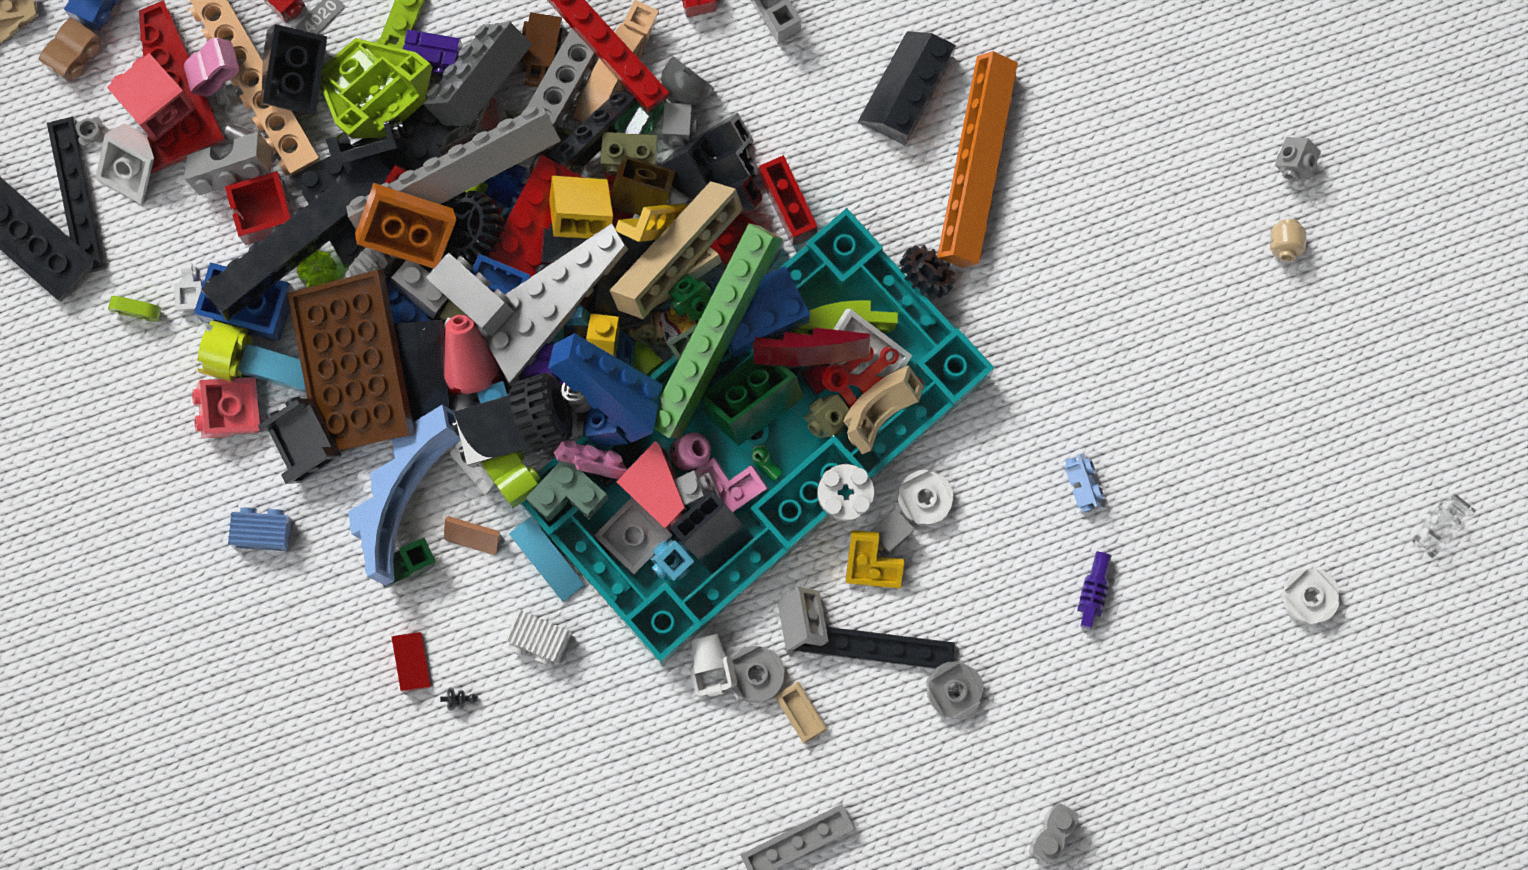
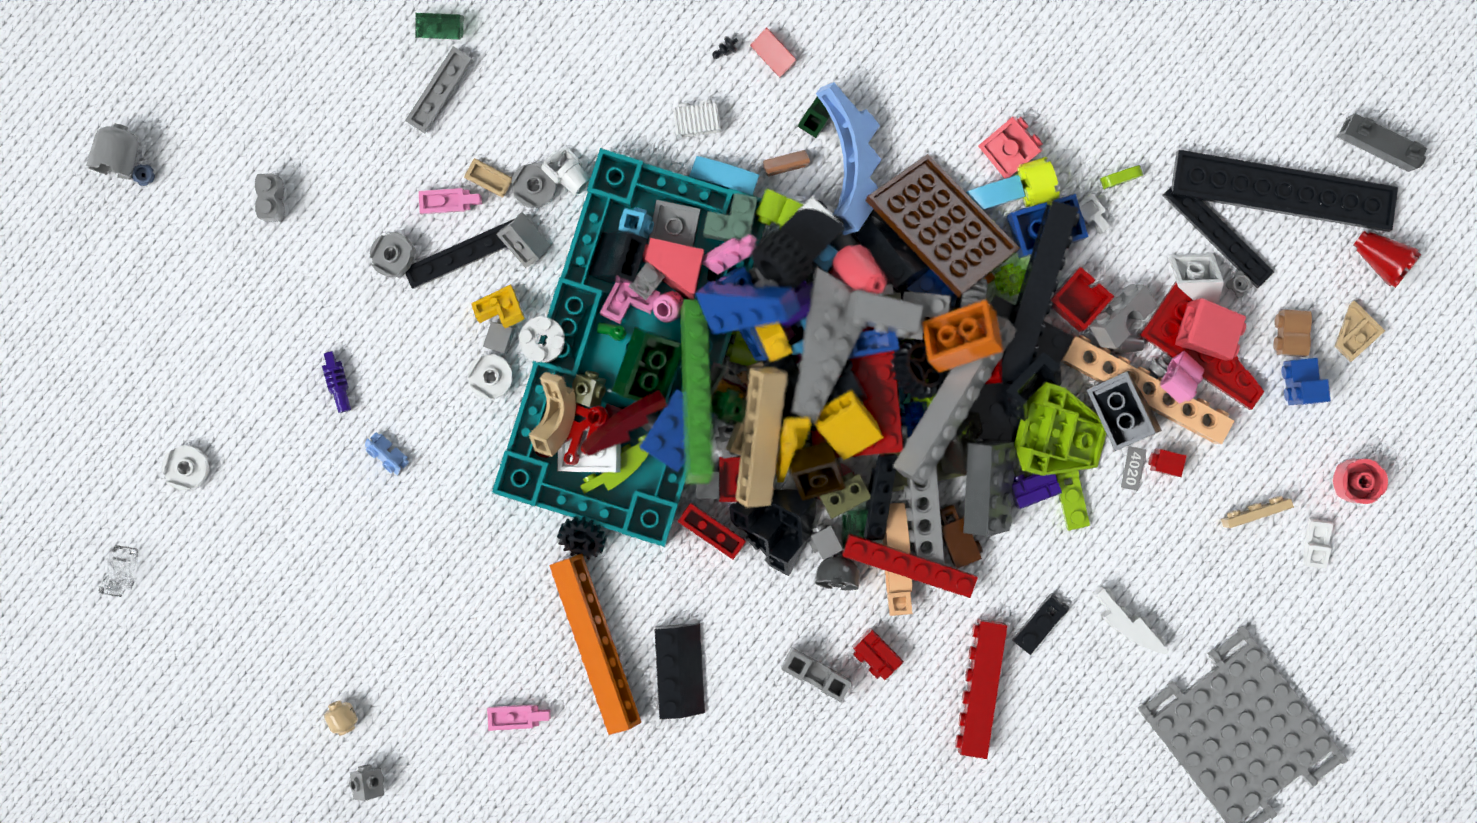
camera: 150 degrees right, 10 degrees up
(260, 530) = (933, 77): medium blue brick -> none
(301, 439) = (944, 155): black panel -> none
(860, 713) = (447, 200): none -> bright pink hinge
(1103, 136) = (515, 717): none -> bright pink hinge

